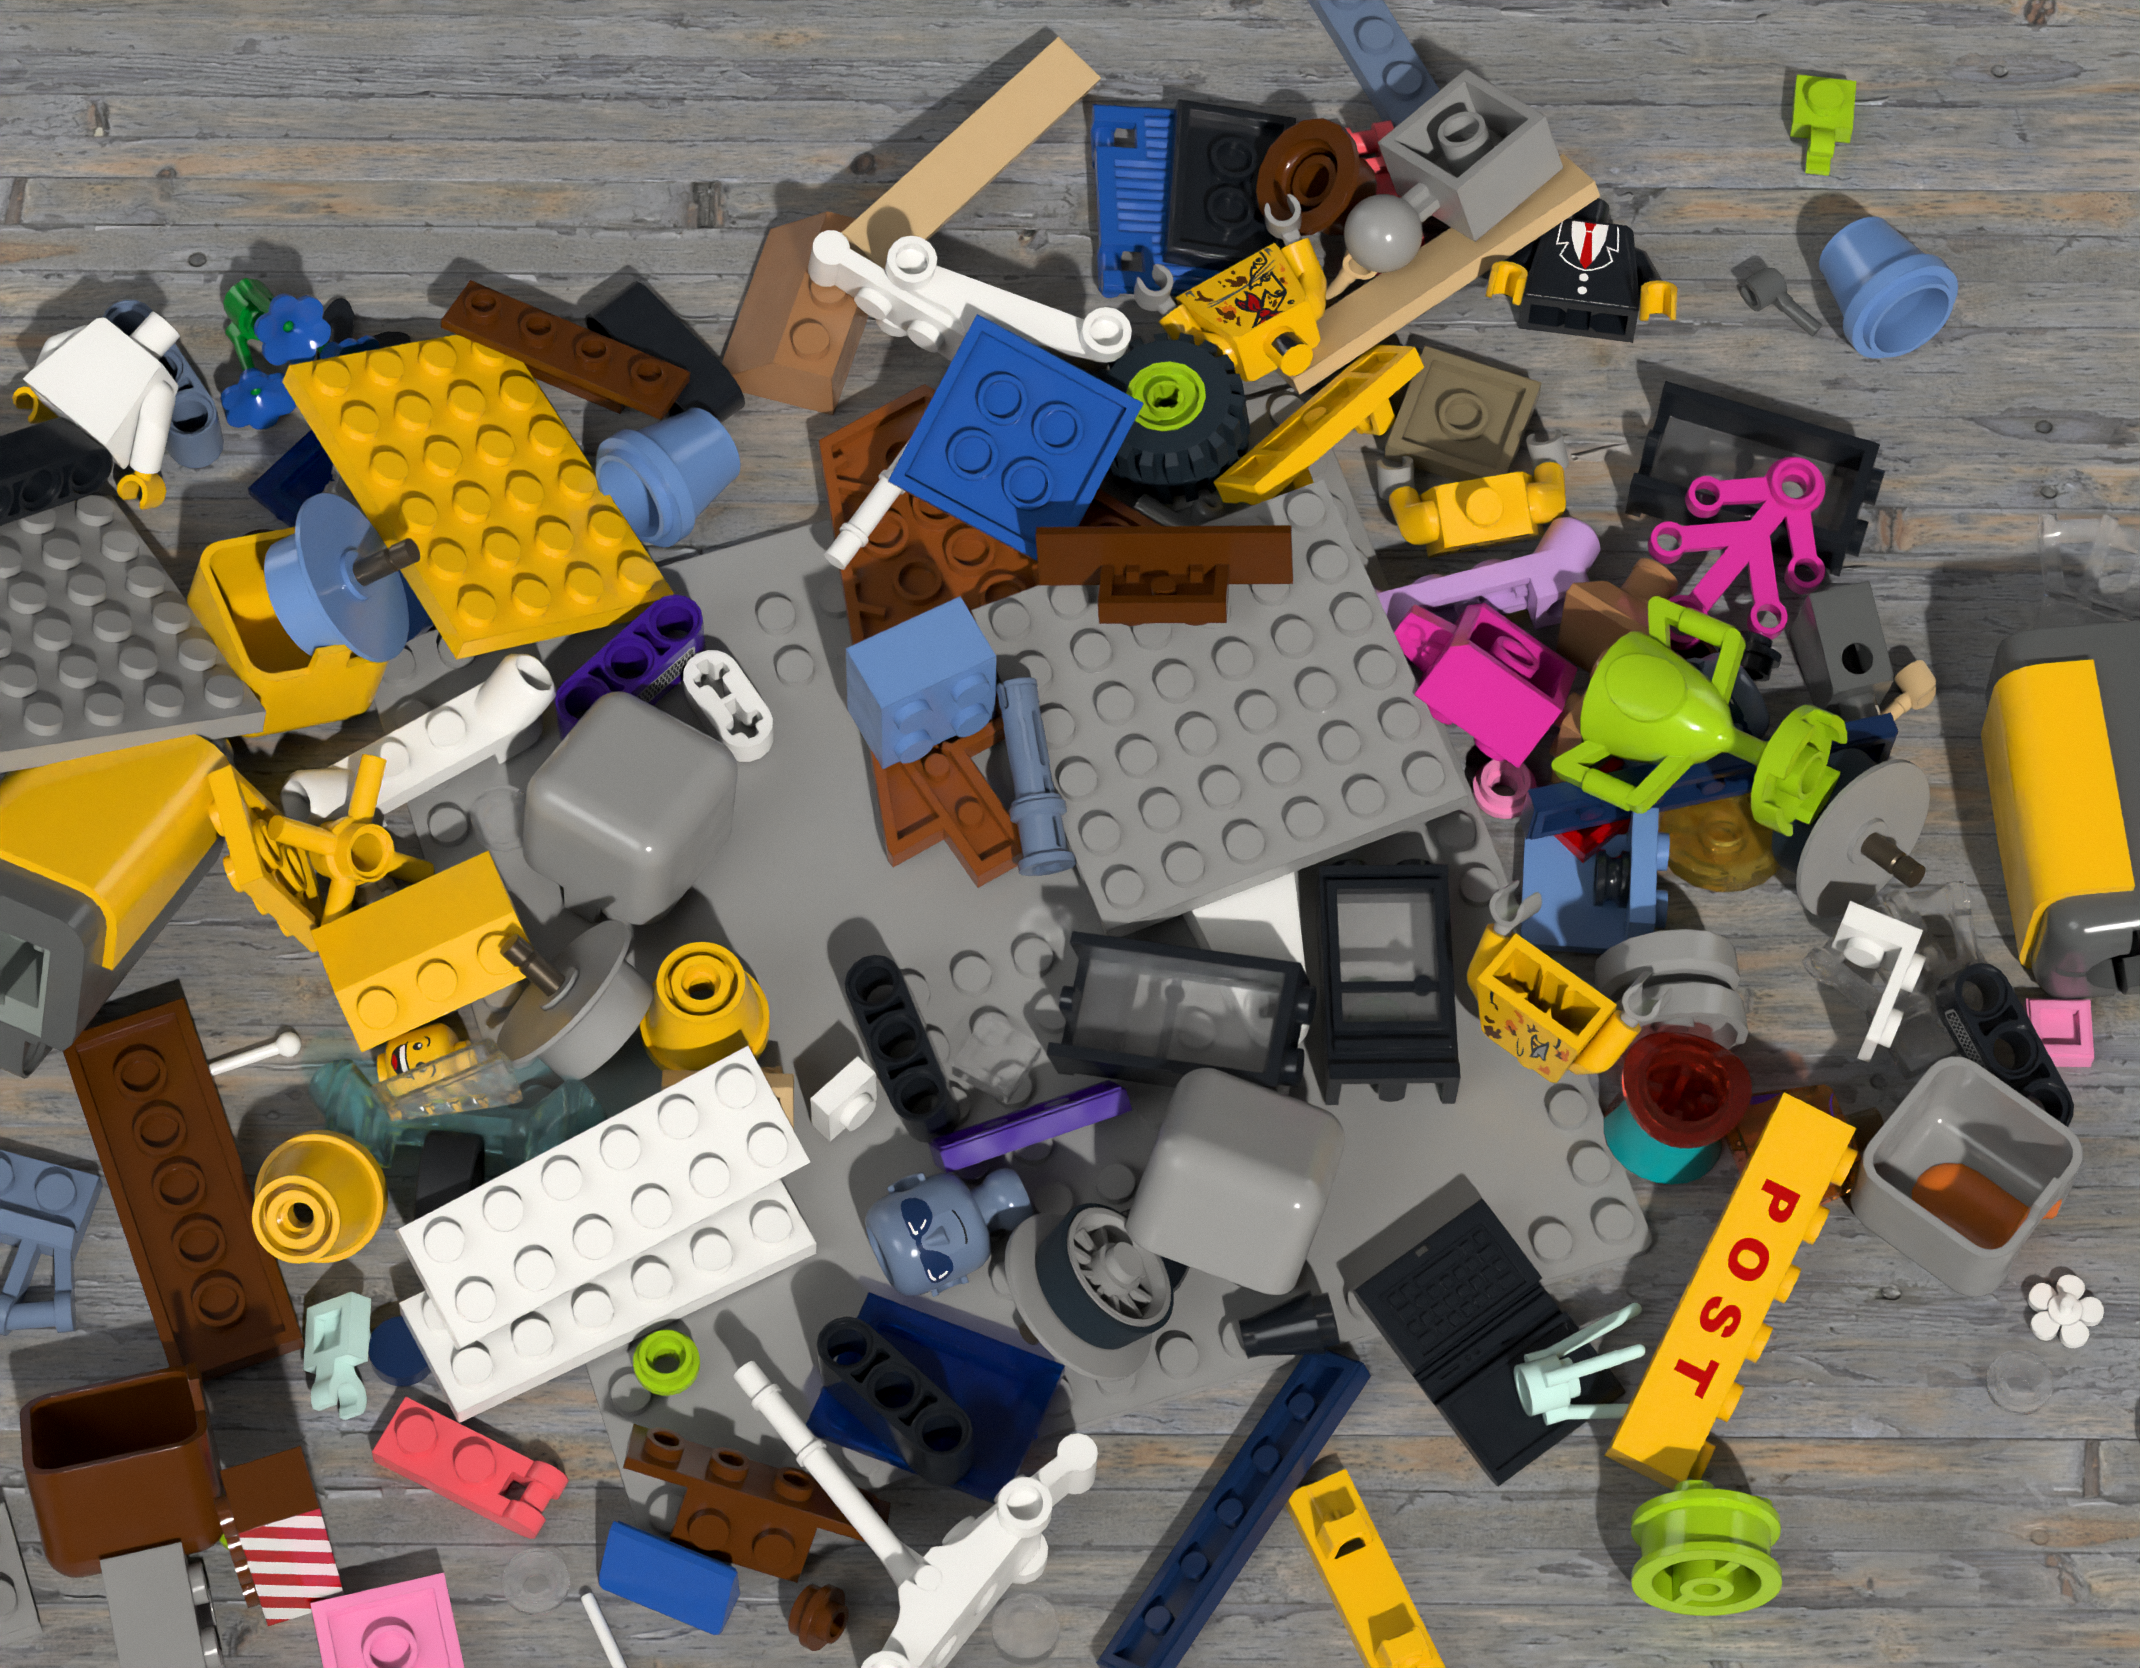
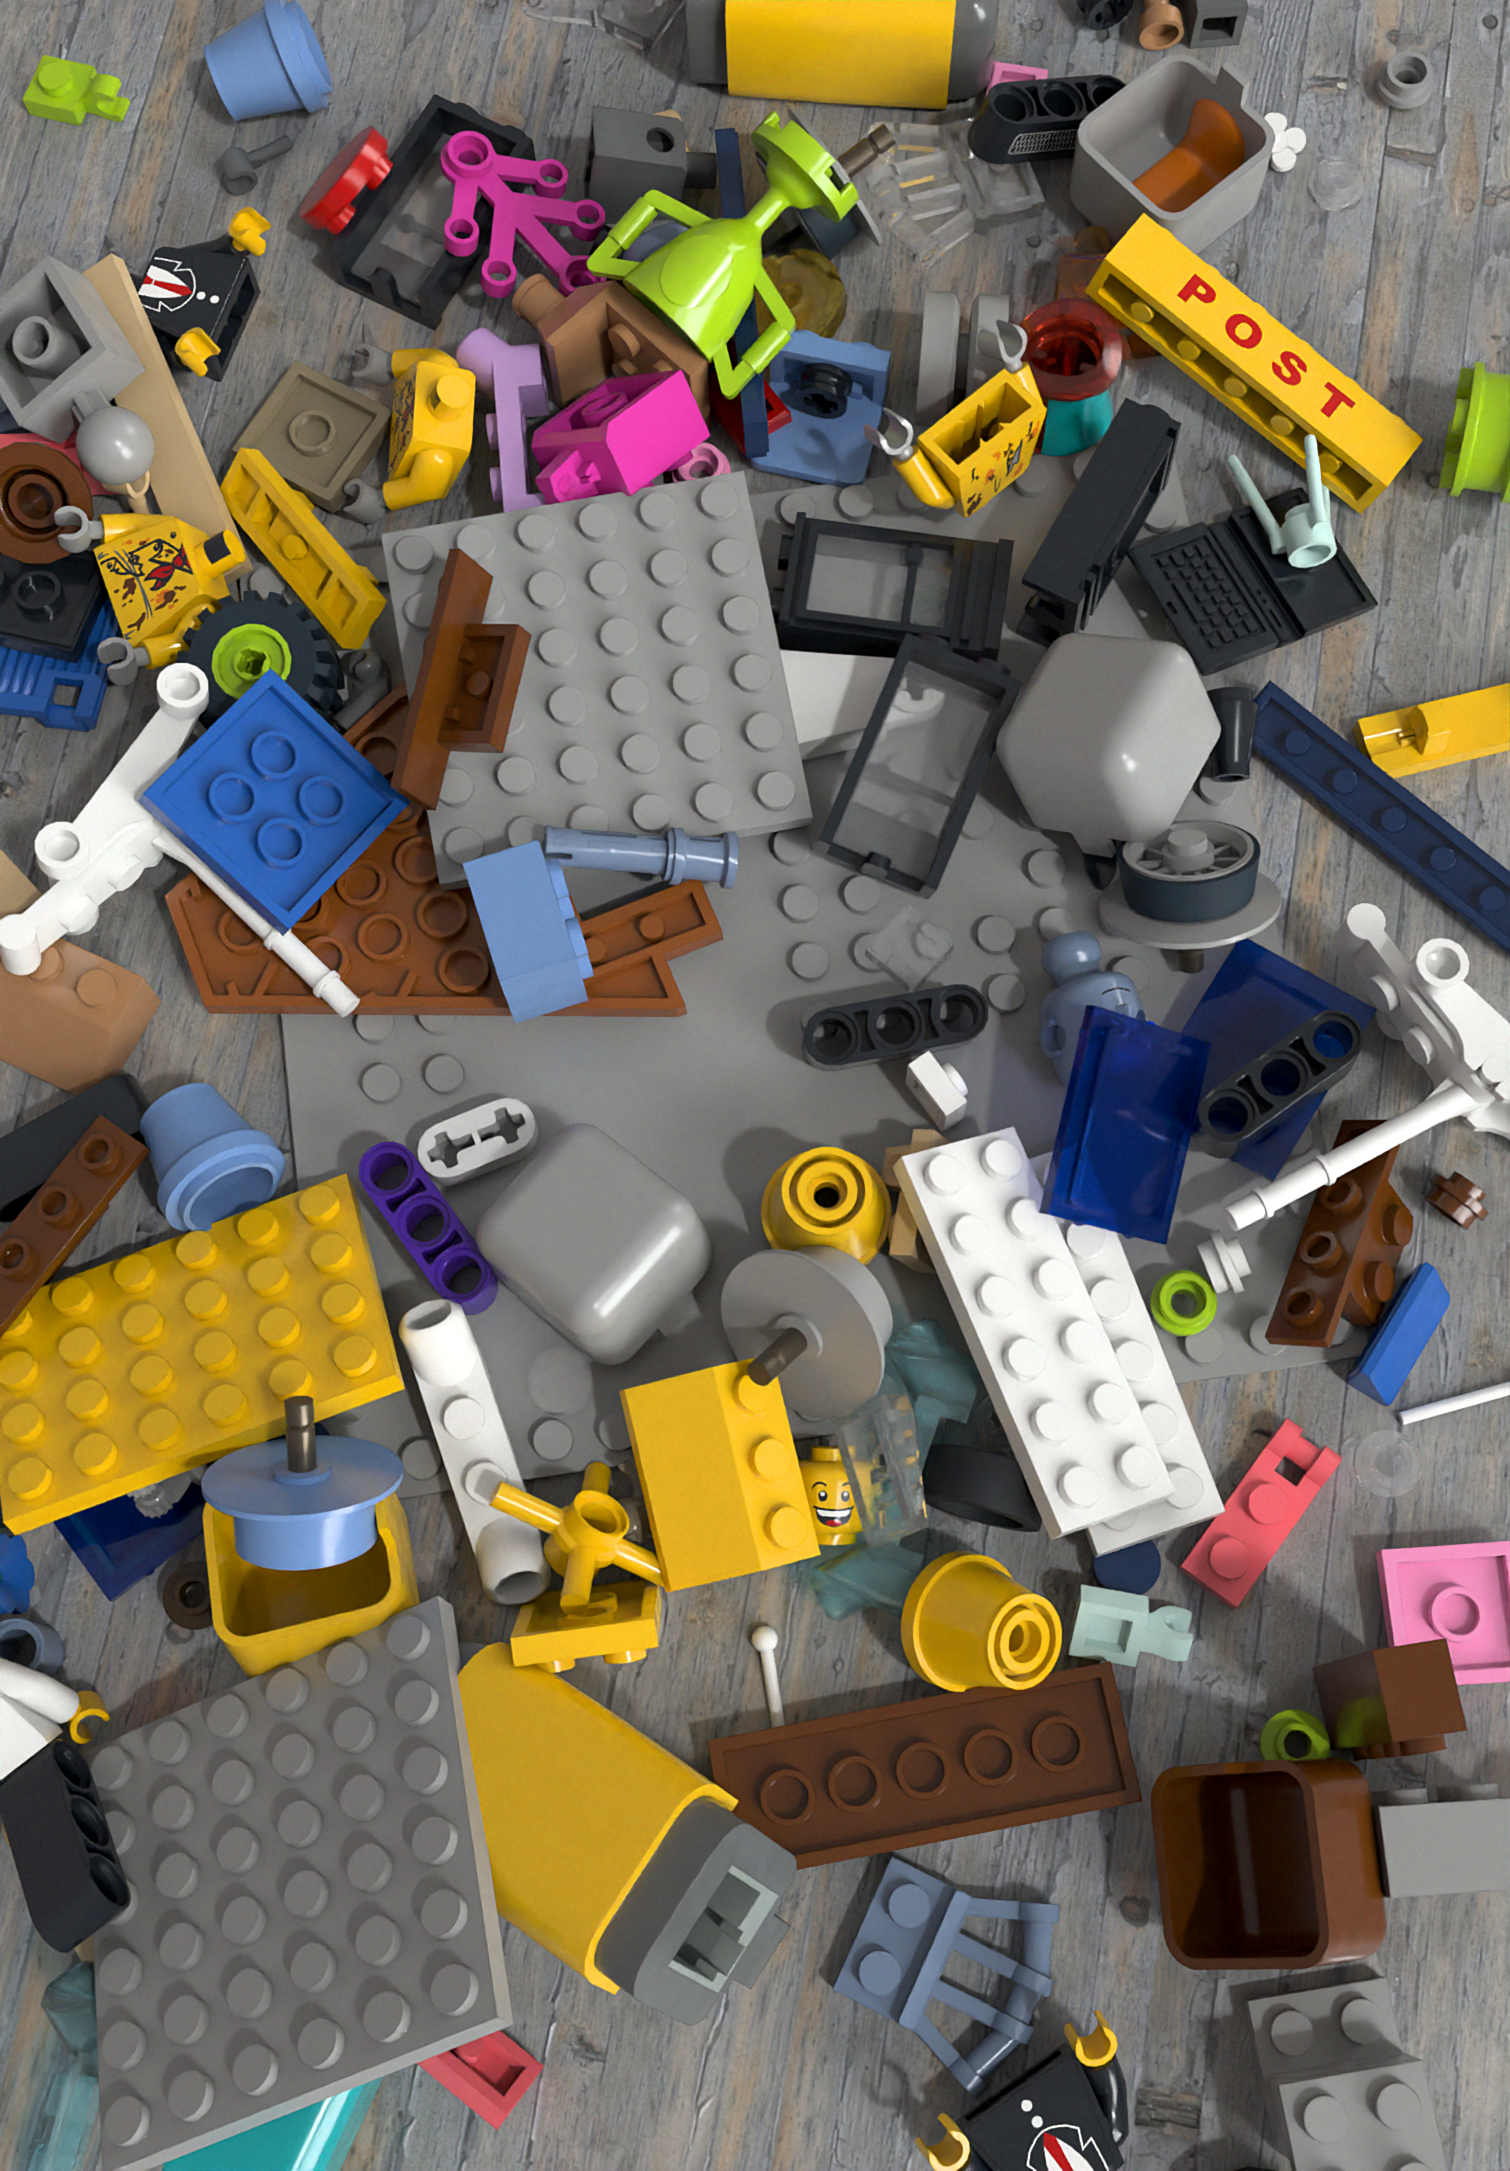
camera: 75 degrees left, 10 degrees up
(709, 1390) = (1224, 1262): none -> white plate
(822, 1254) = (1125, 1126): none -> clear blue piece
(1029, 1125) = (996, 925): dark purple tile -> none
(1491, 1149) = (1099, 522): none -> black door
(1755, 383) = (358, 164): none -> red tile
(1883, 942) = (965, 175): white bracket -> none

